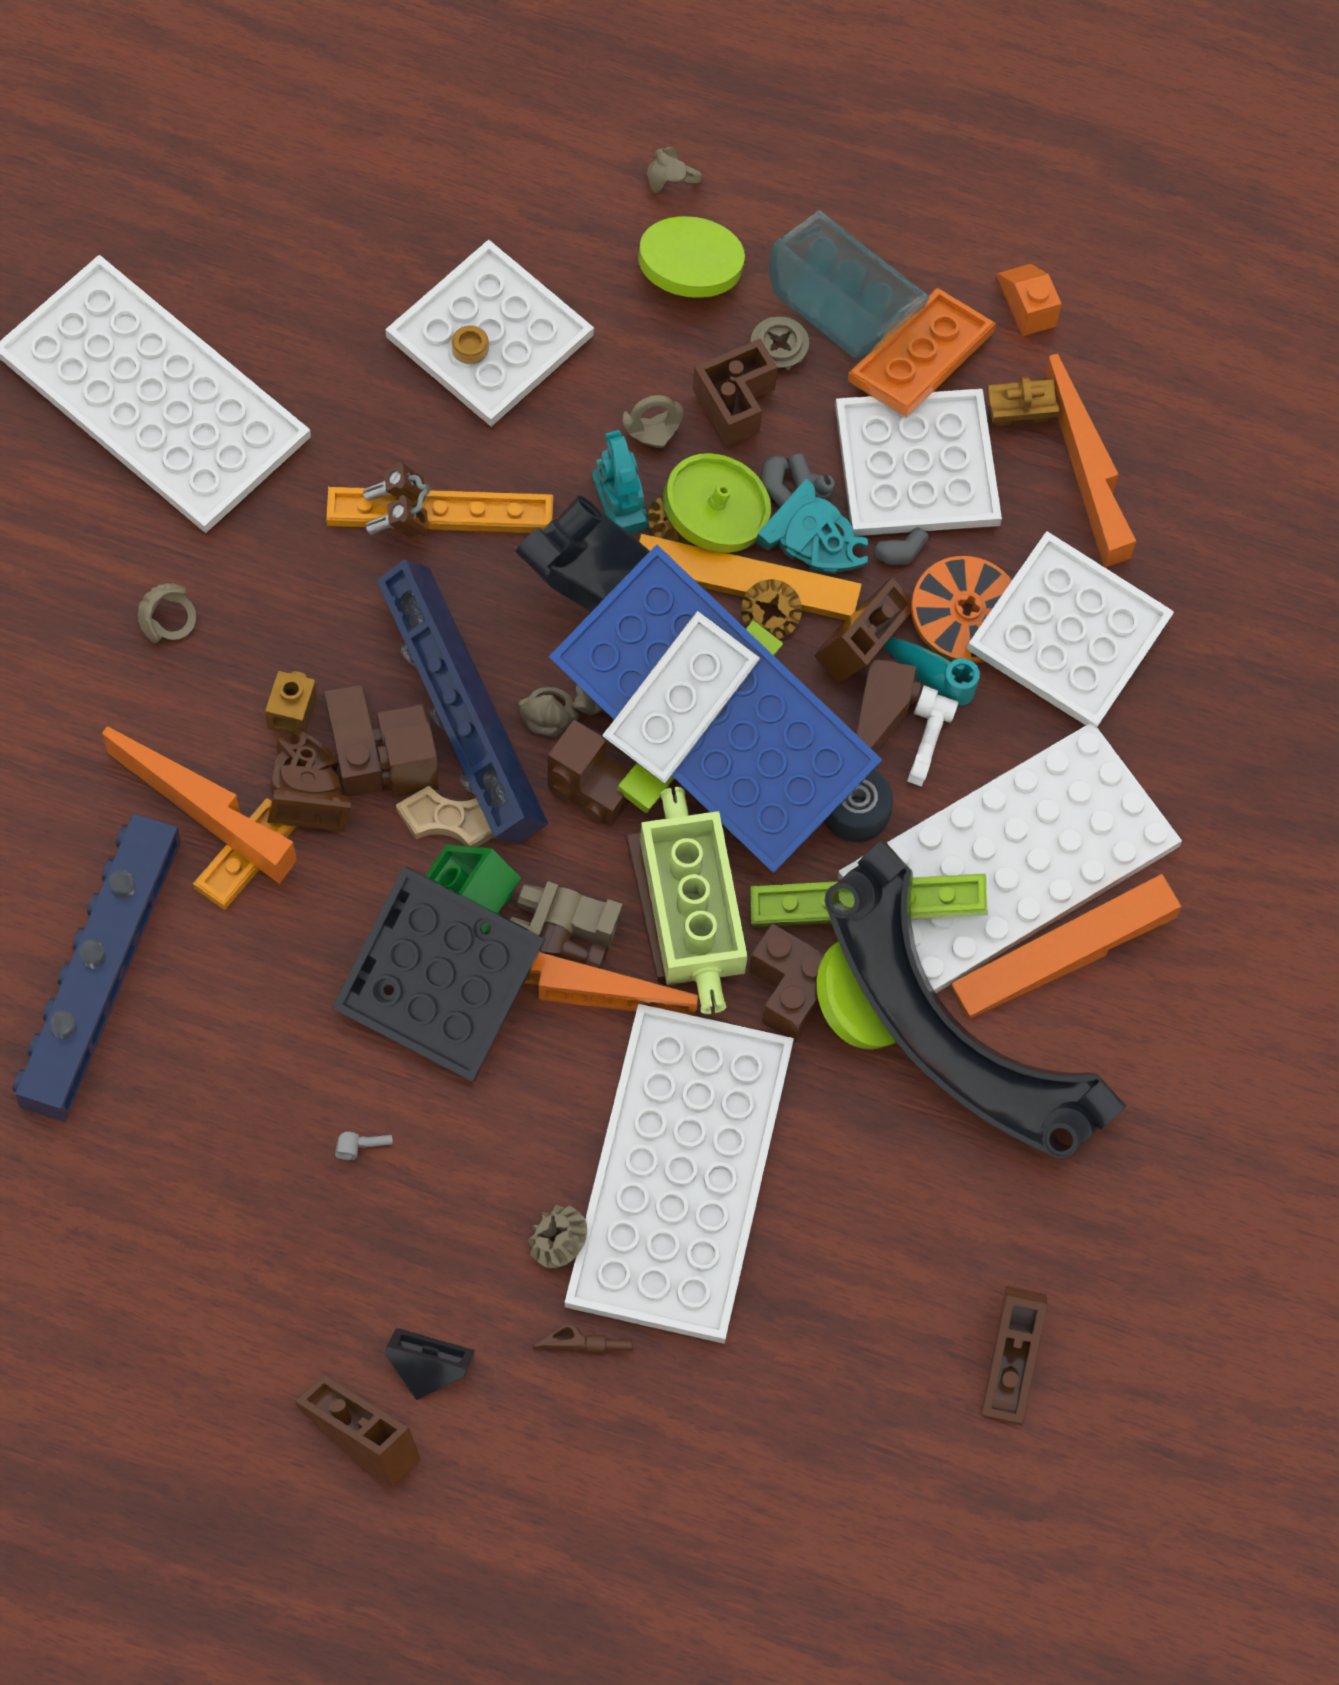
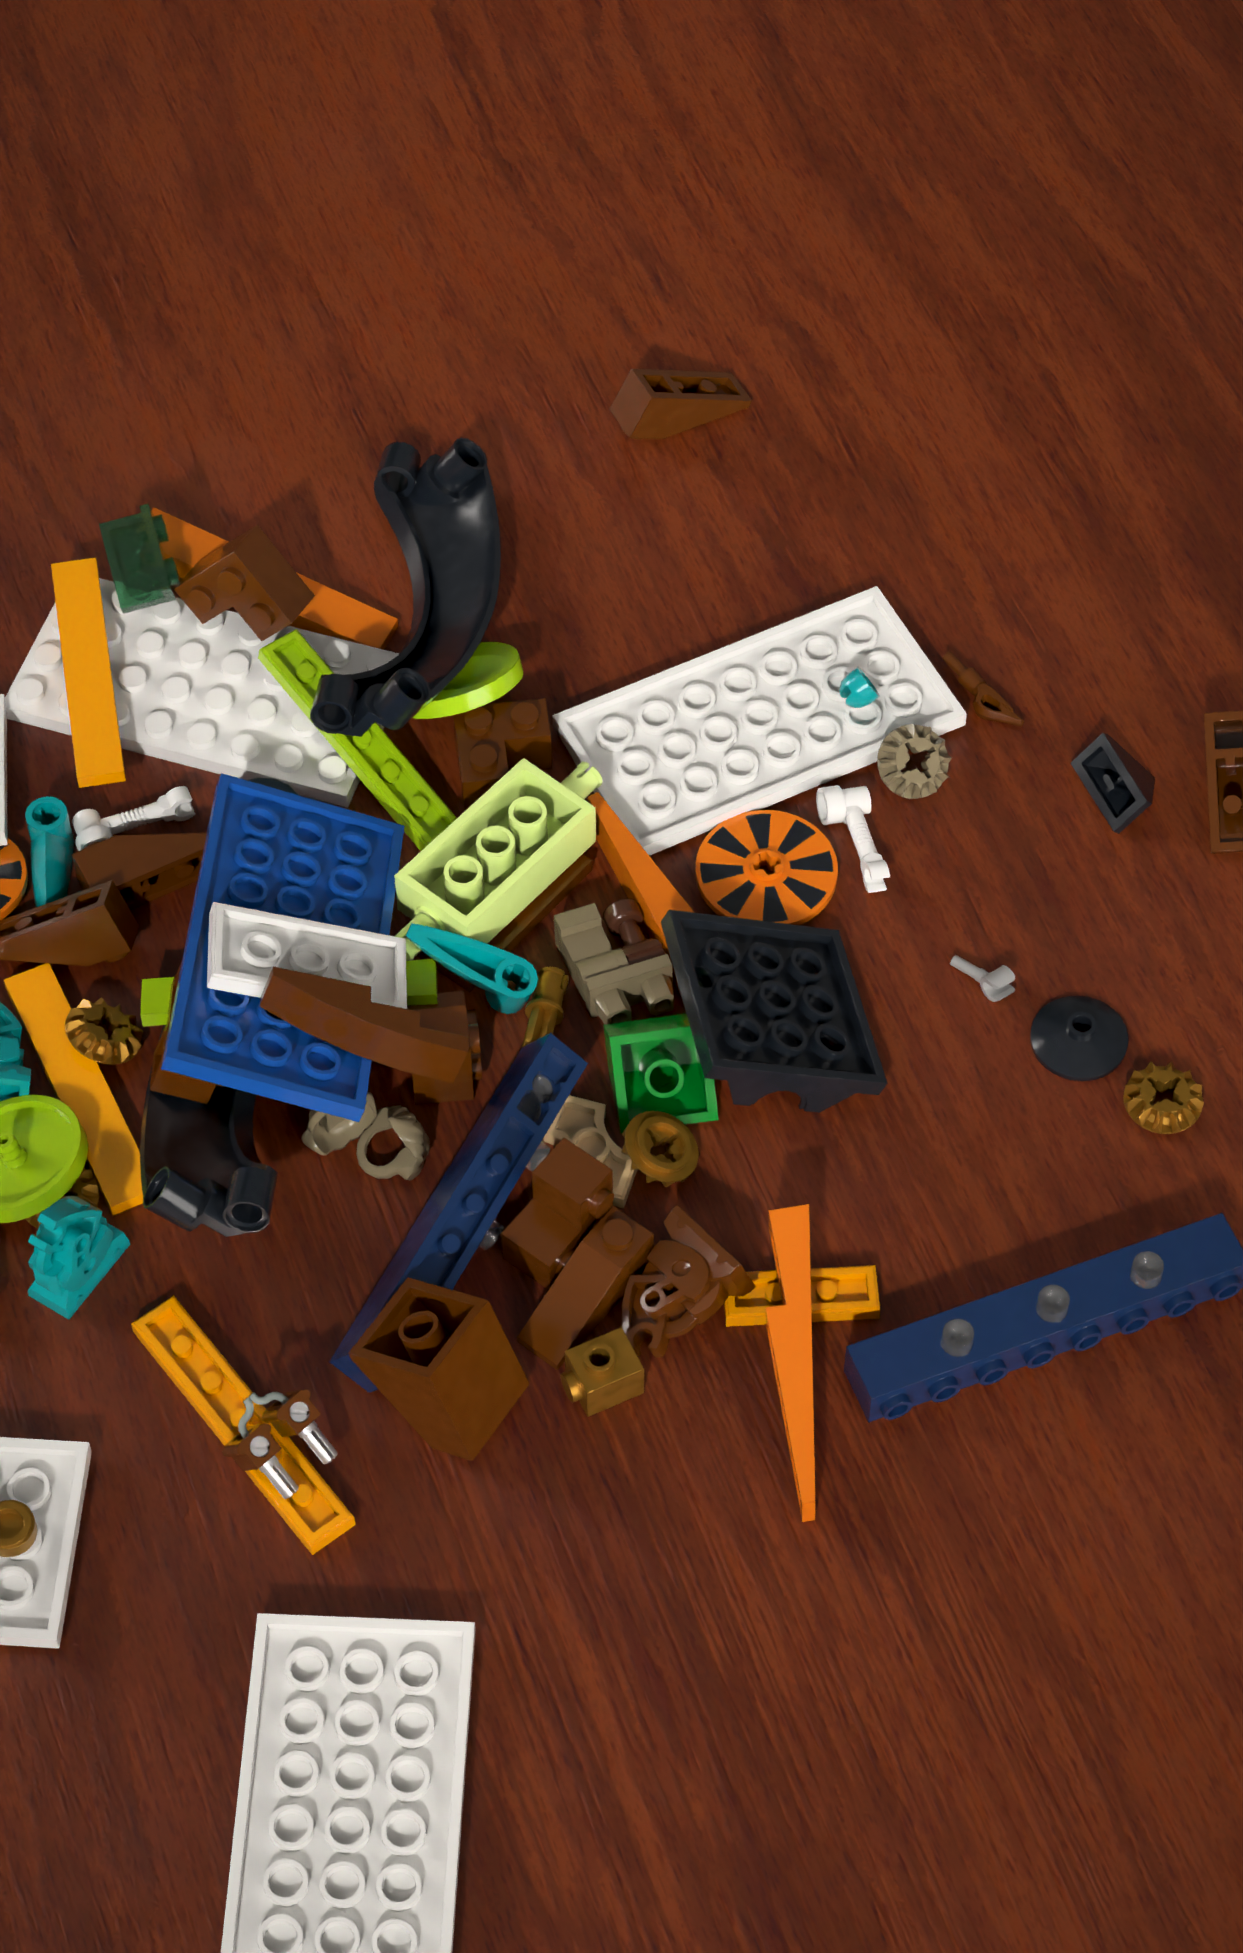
camera: 125 degrees left, 10 degrees down
(146, 607) = (608, 1592): dark tan piece -> none
(192, 1183) = (1164, 1116): none -> pearl gold gear
(268, 1184) = (1076, 1053): none -> black dish
(360, 601) = (442, 1365): none -> reddish brown slope
(396, 834) = (658, 1128): none -> pearl gold gear
(562, 1168) = (849, 806): none -> white brick
(567, 861) = (546, 1005): none -> pearl gold axle
(571, 1107) = (786, 844): none -> orange piece
(617, 681) = (348, 1019): none -> reddish brown slope
(619, 830) = (479, 965): none -> teal piece
(629, 1239) = (858, 689): none -> teal hinge
(1055, 901) = (251, 579): none -> reddish brown brick
(1071, 780) = (88, 673): none -> light orange tile
(1132, 859) = (138, 560): none -> clear green bracket

